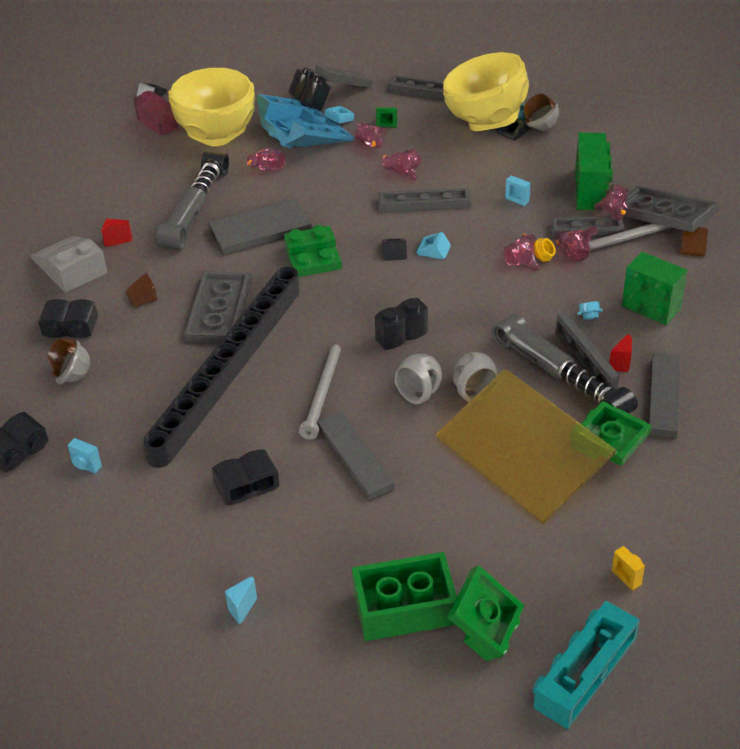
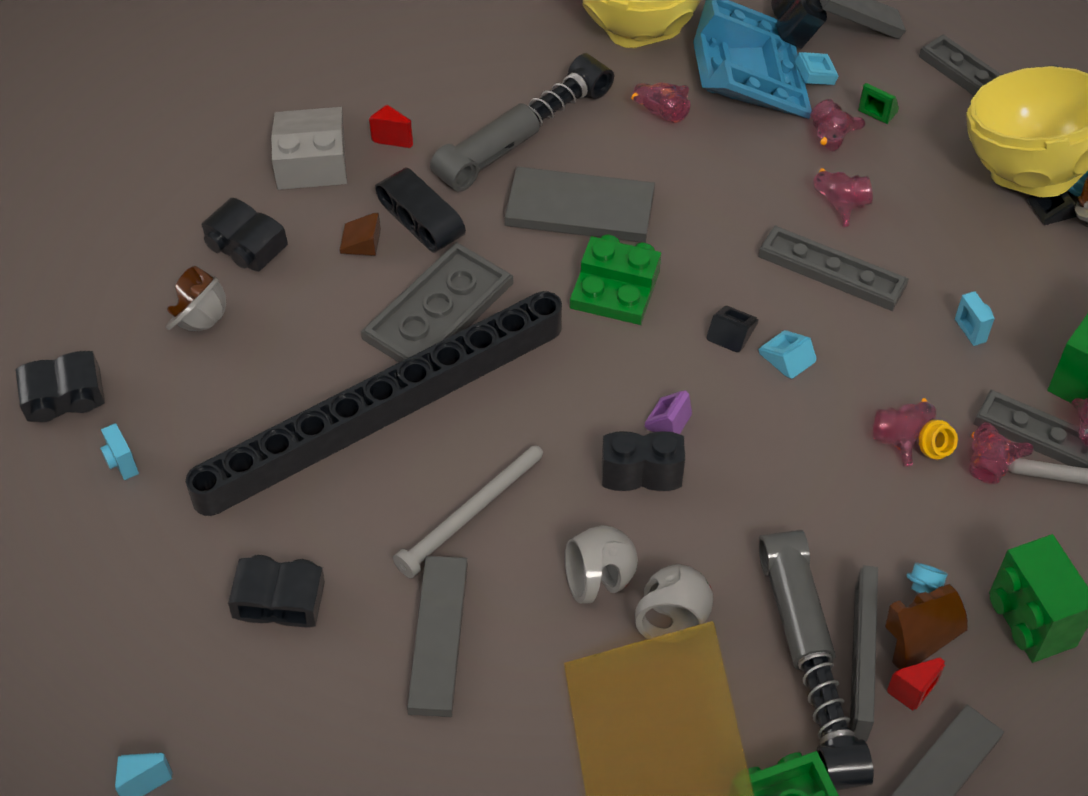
camera: 30 degrees right, 10 degrees up
(168, 264) = (420, 209): none -> black beam
(394, 295) = (670, 413): none -> medium lavender slope
(608, 326) = (925, 625): none -> reddish brown slope

